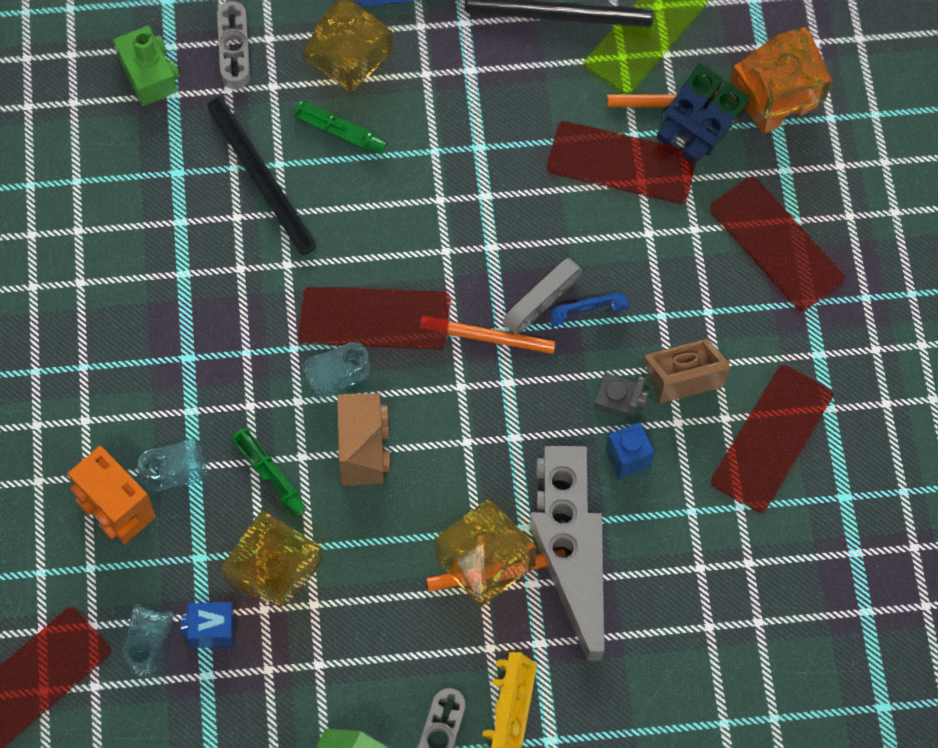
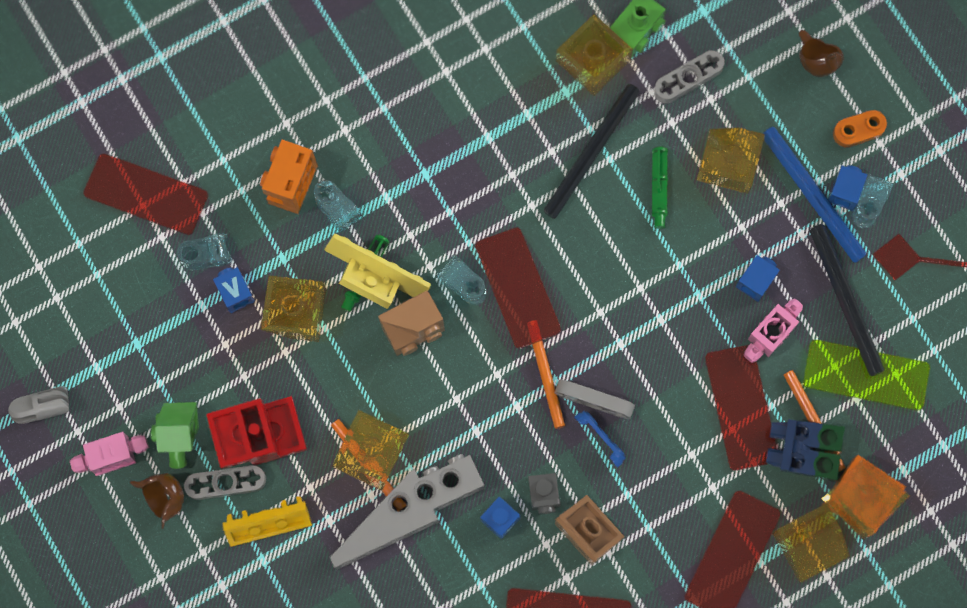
camera: 70 degrees right, 10 degrees up
(157, 118) = (593, 54): none -> clear yellow slope
(280, 455) = (373, 275): none -> light yellow bracket
(400, 669) = (256, 432): none -> red bracket
(492, 79) = (758, 277): none -> blue brick
(565, 108) = (786, 316): none -> bright pink piece
(800, 156) = (812, 543): none -> clear yellow slope

